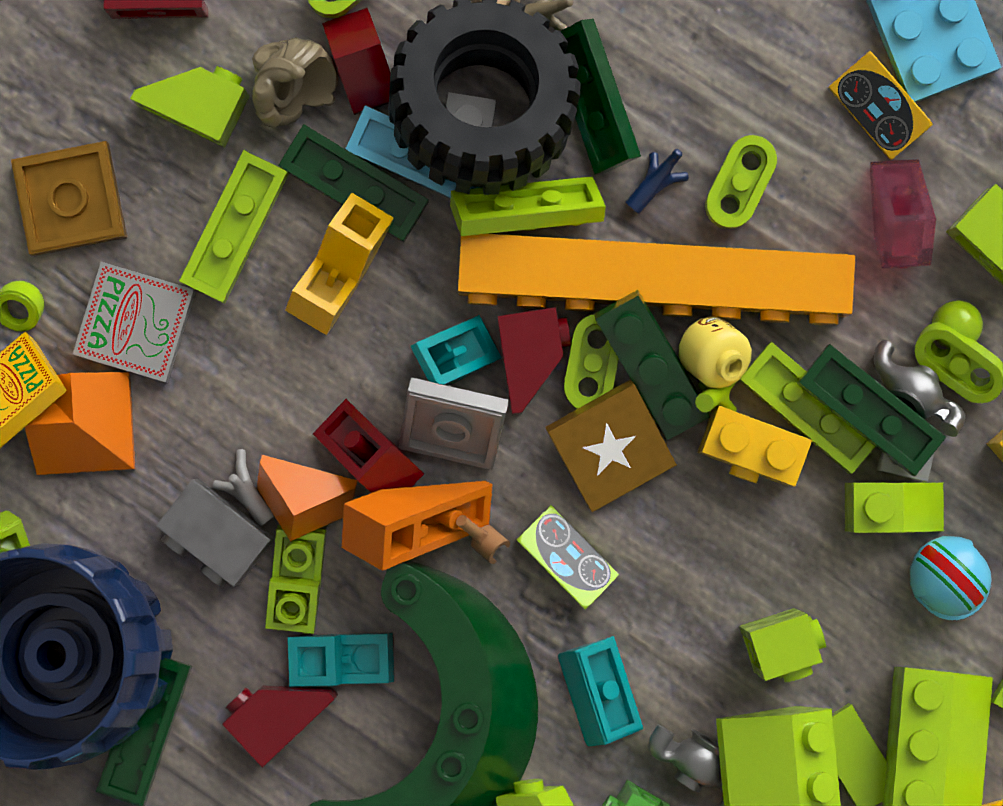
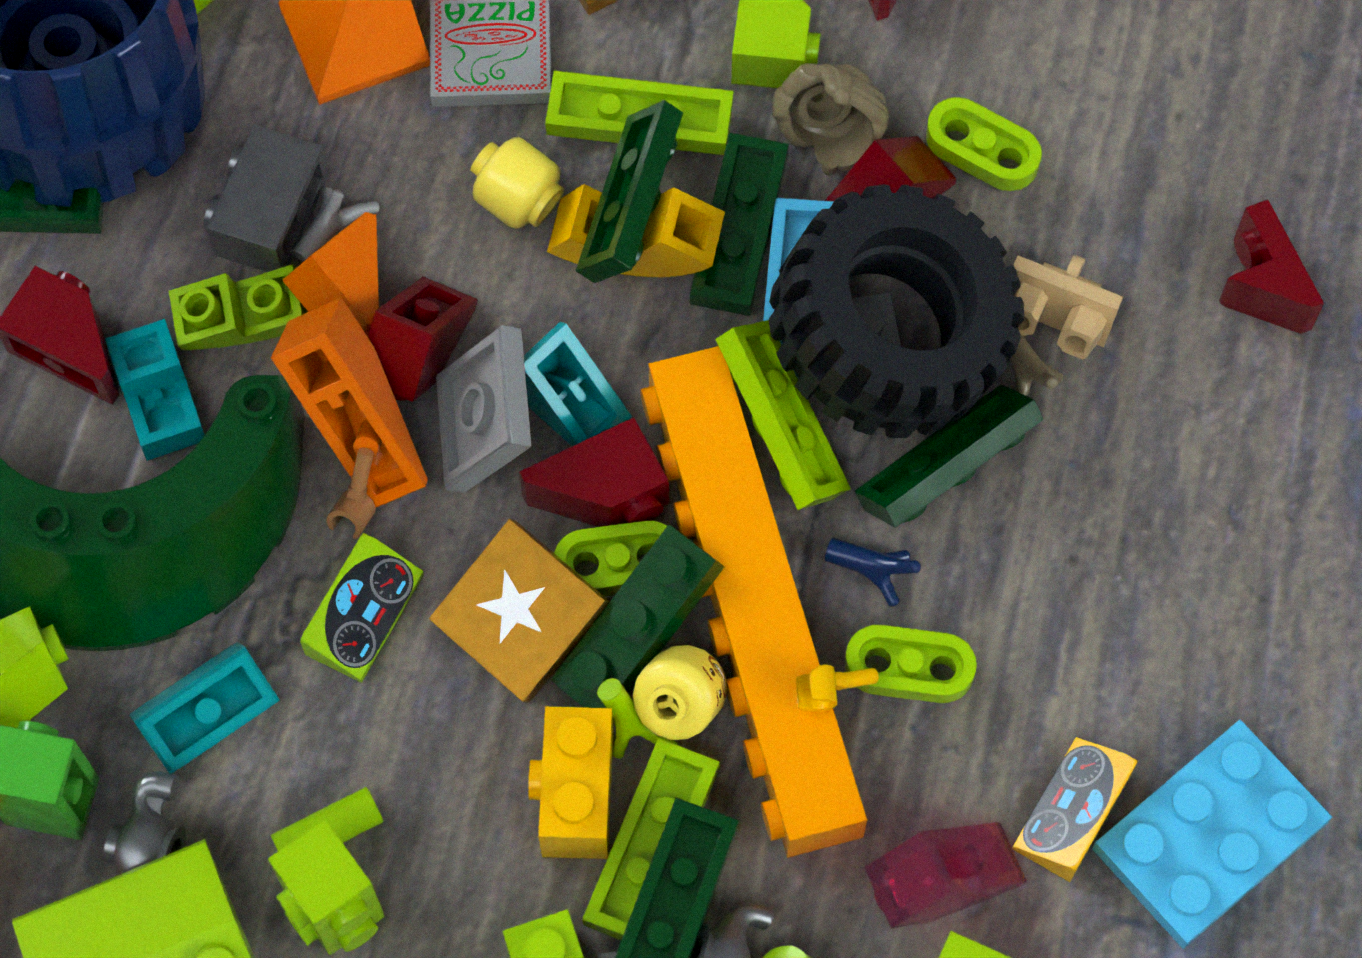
camera: 70 degrees right, 20 degrees down
(266, 340) = (516, 182): none -> light yellow head
(314, 258) = (630, 192): none -> dark green plate
(723, 630) = (346, 817): none -> lime hinge
(752, 254) = (818, 689): none -> yellow hand

